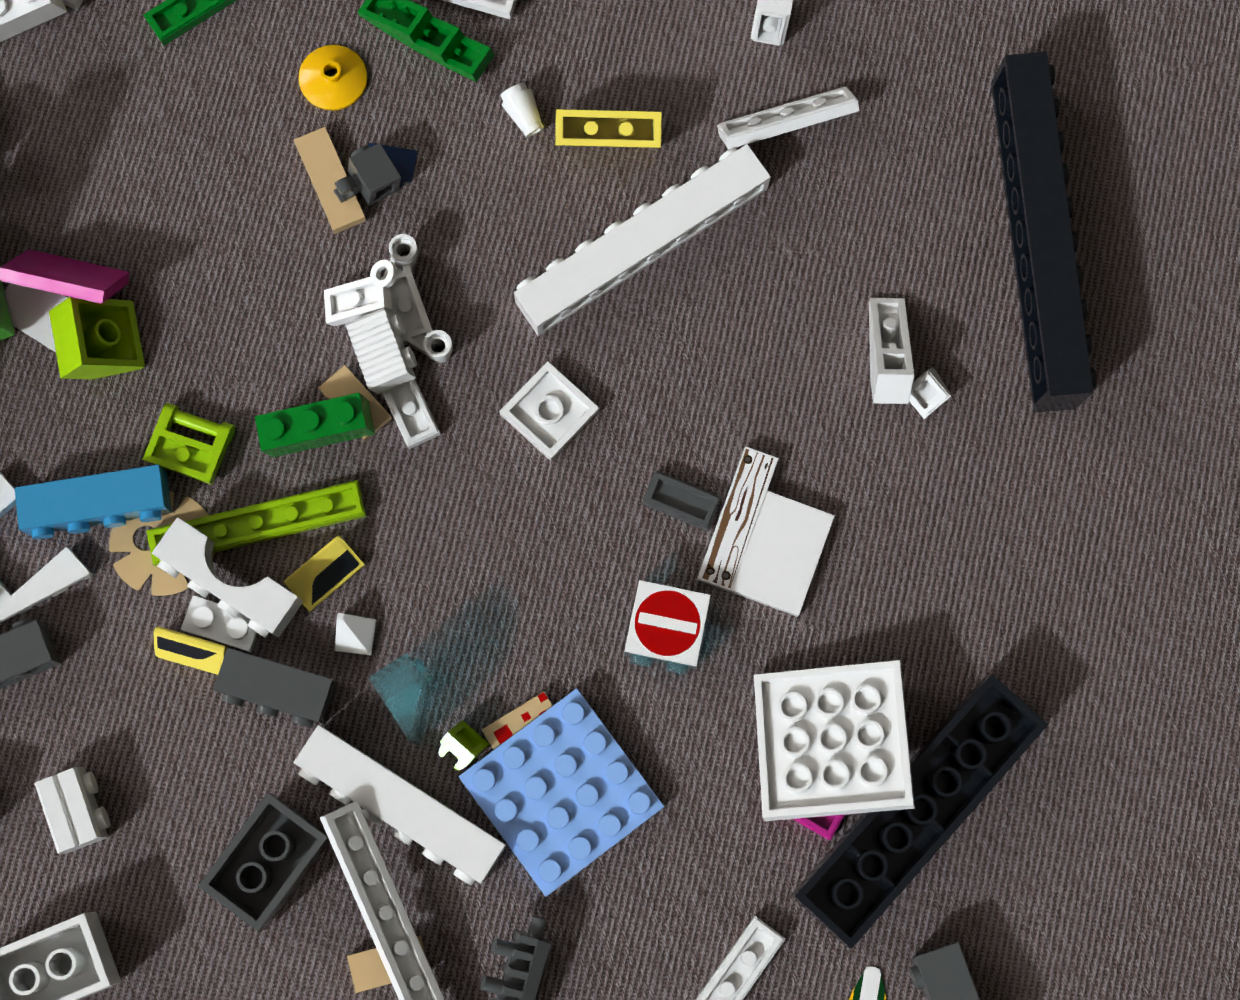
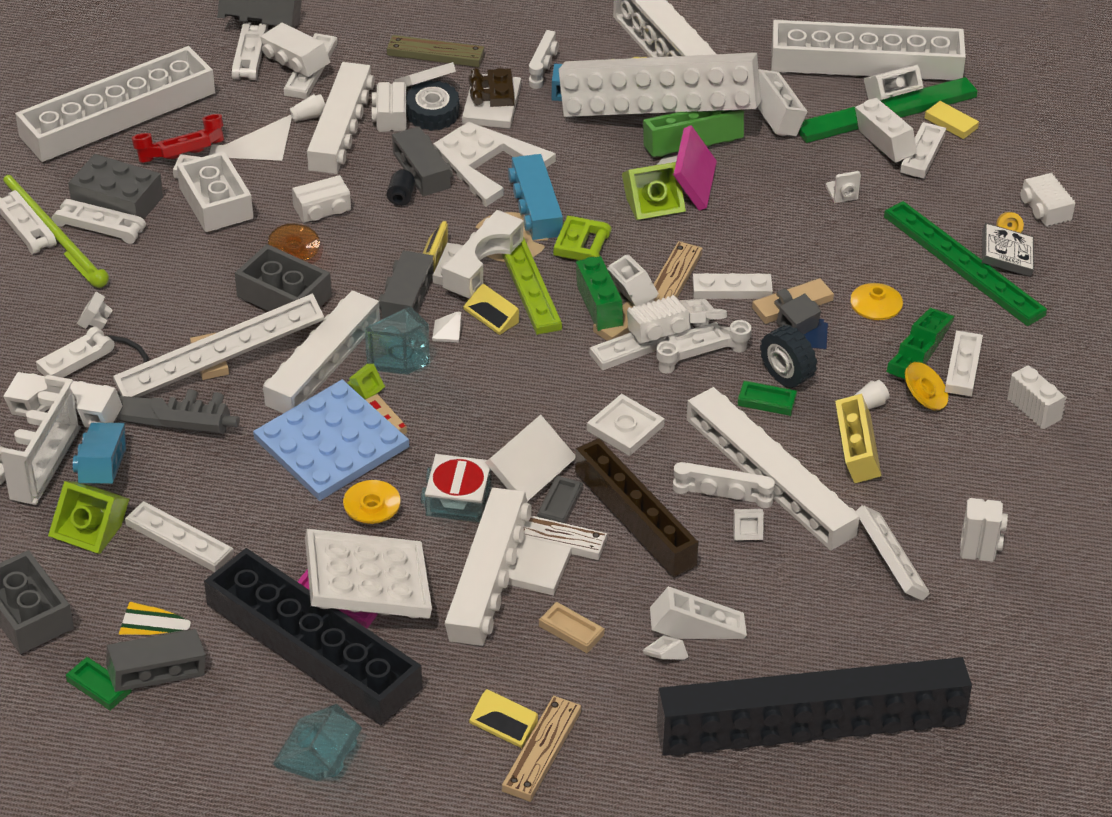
camera: 90 degrees right, 35 degrees down
(54, 693) = (401, 187): none -> black brick
(117, 79) = (844, 187): none -> white bracket
(151, 840) = (295, 240): none -> clear orange dish
(275, 330) = (677, 270): none -> tan tile
(294, 254) = (731, 286): none -> white plate
(301, 378) = (632, 281): none -> white brick
(464, 192) = (788, 356): none -> black wheel
(509, 232) = (767, 398): none -> green tile
(512, 37) = (926, 386): none -> yellow dish
(628, 530) = (531, 458): none -> white tile
(674, 285) = (723, 483): none -> white plate
(691, 717) = (371, 501): none -> yellow dish
(715, 406) = (636, 507): none -> dark brown brick
(739, 277) = (748, 524): none -> white tile
(810, 591) = (488, 567): none -> white brick
(889, 498) = (571, 627): none -> tan tile
(1034, 583) = (504, 718): none -> light yellow slope
(1072, 541) = (541, 748): none -> tan tile
(1078, 802) = (319, 744): none -> clear light blue slope

